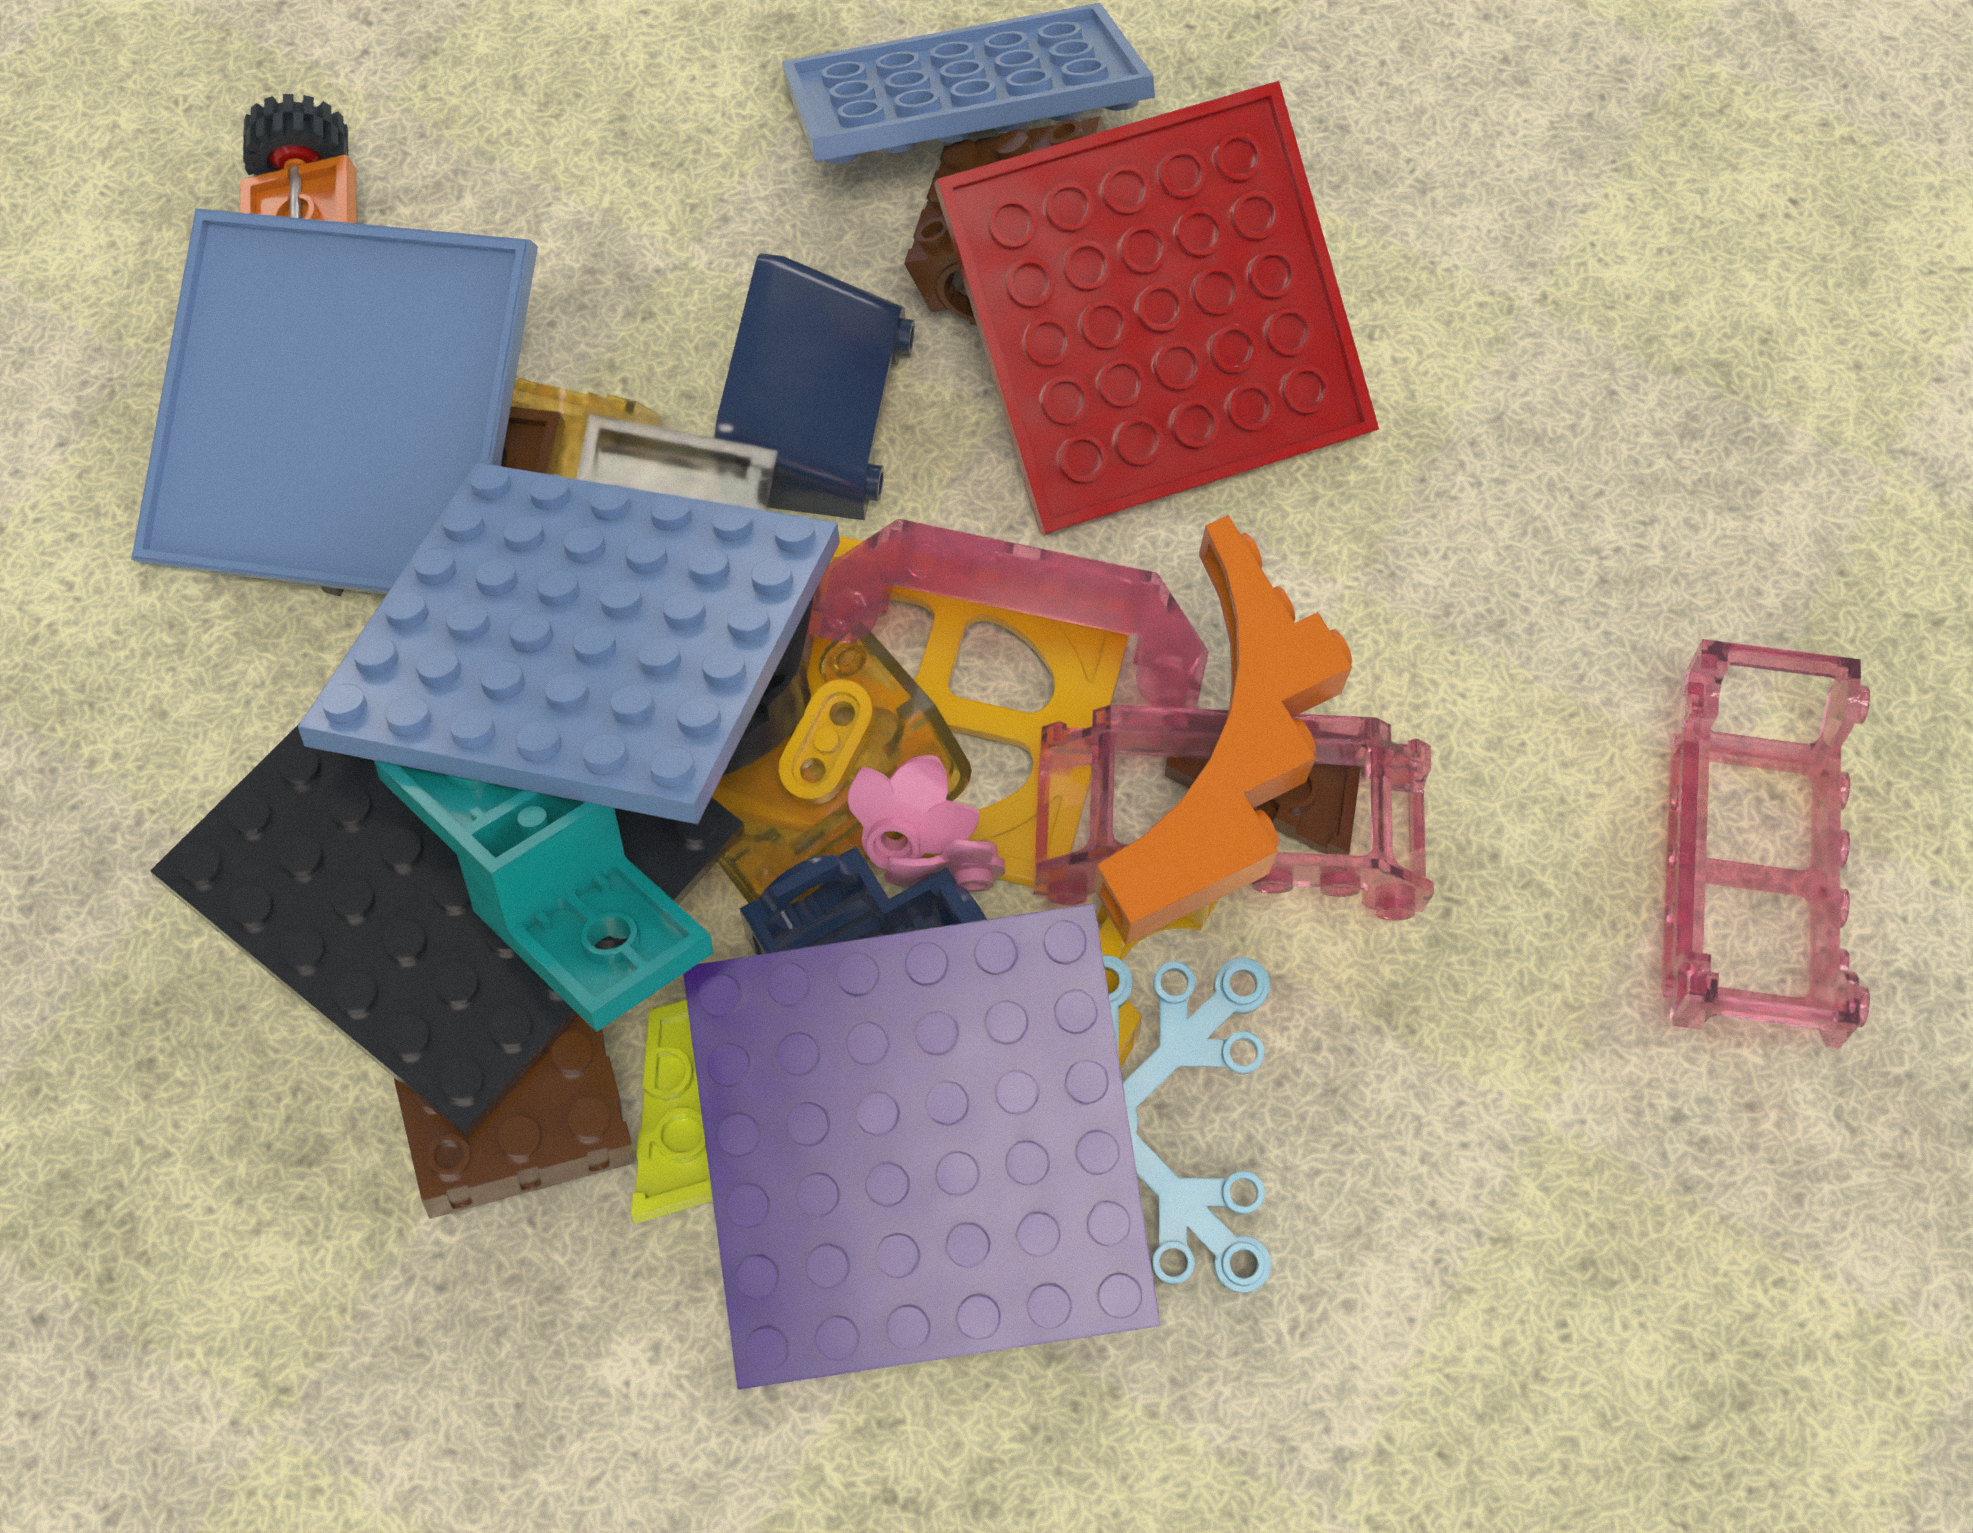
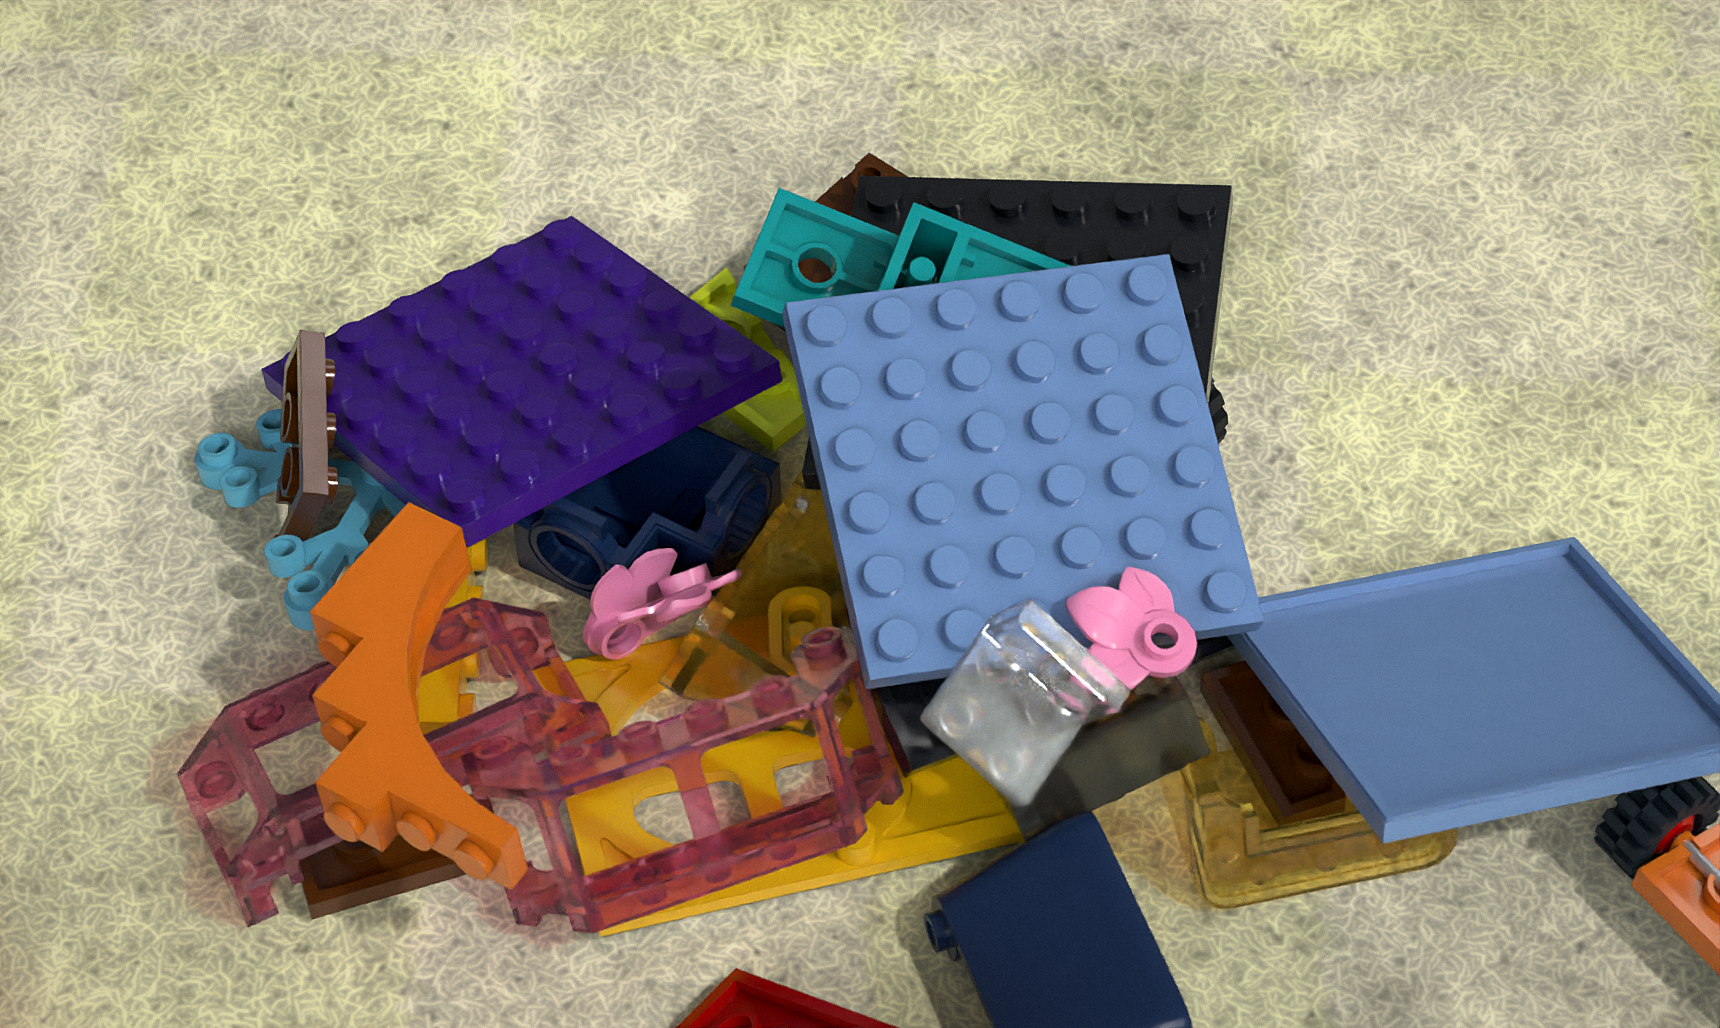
camera: 150 degrees right, 10 degrees down
(597, 465) = (1123, 624): none -> bright pink plate
(727, 460) = (1021, 699): none -> clear bracket
(1166, 1148) = (305, 475): none -> reddish brown wing

